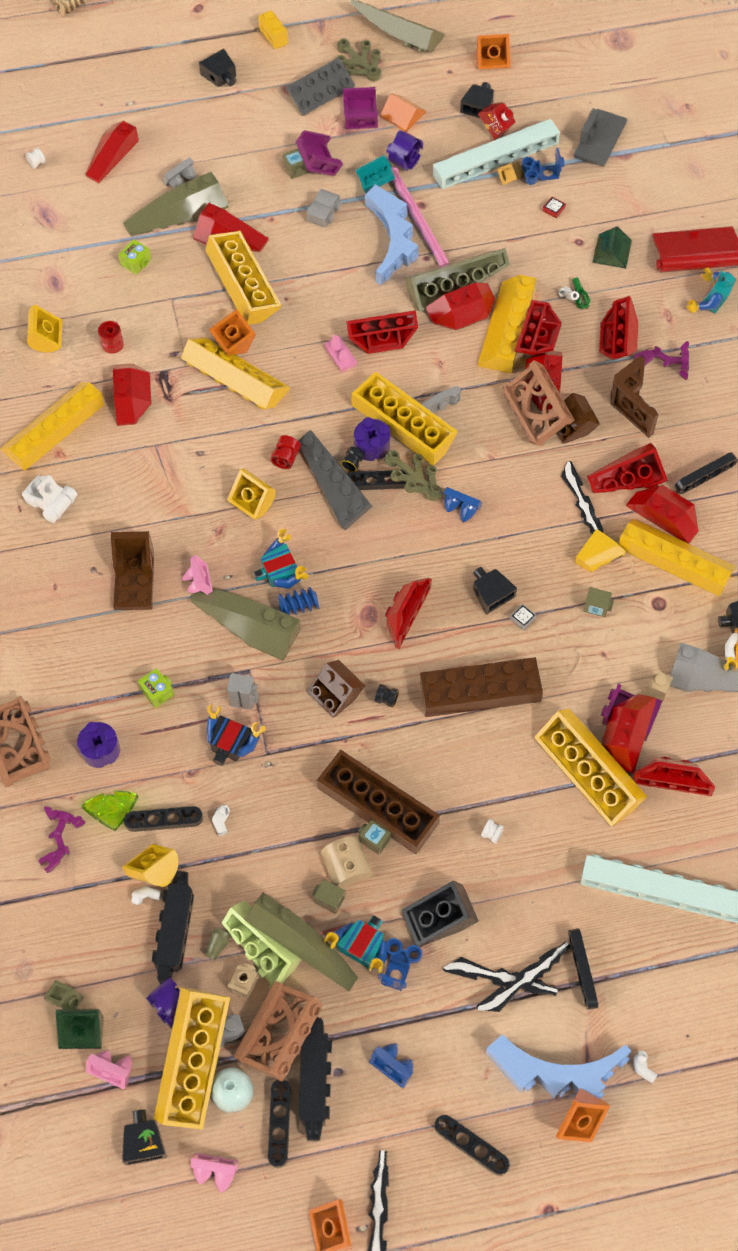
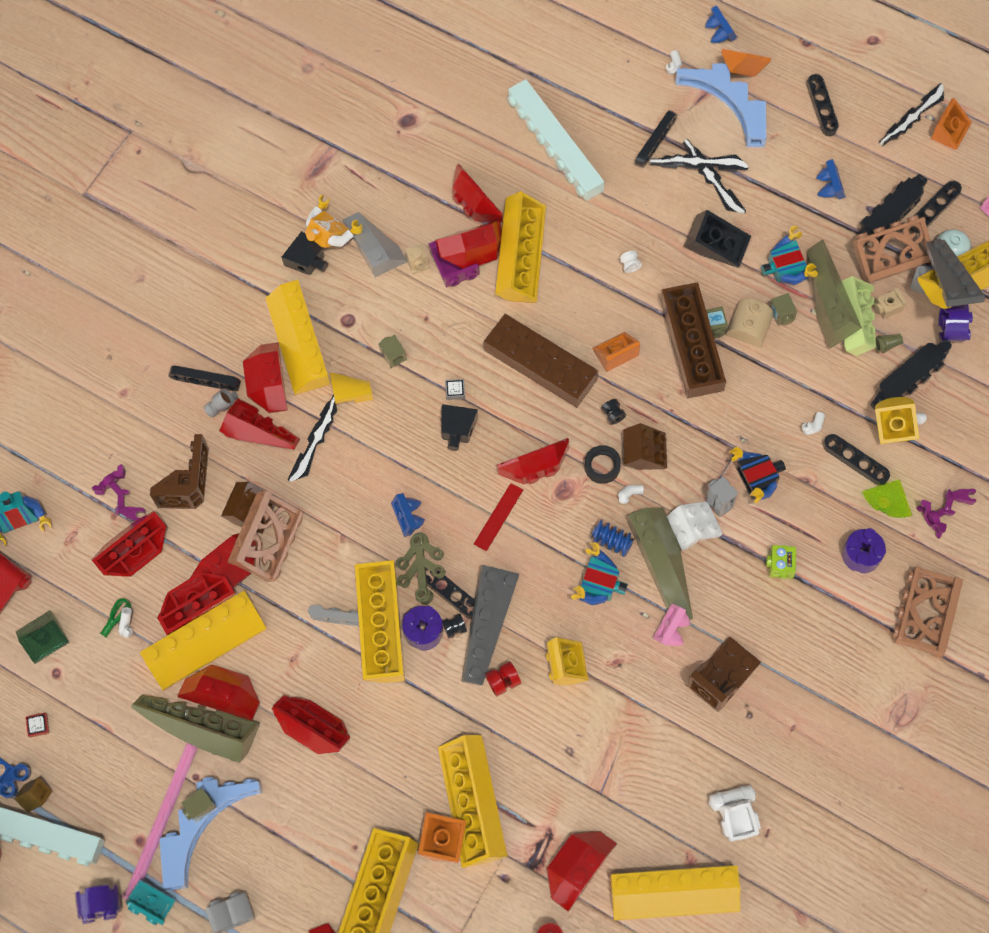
camera: 135 degrees left, 5 degrees up
(189, 1005) = (953, 278): none -> dark grey wing
(246, 659) = (693, 523): none -> white bracket
(319, 648) = (629, 490): none -> white arm
(340, 353) = (366, 741): bright pink tile -> none
(356, 636) = (602, 450): none -> black tyre
(397, 556) = (498, 517): none -> red sticker
(399, 961) = (768, 233): blue piece -> none
(400, 230) = (198, 805): none -> olive brick
(432, 746) = (617, 351): none -> orange slope
(632, 1147) = (725, 31): none -> blue tile
(673, 465) = (220, 402): none -> light grey piece

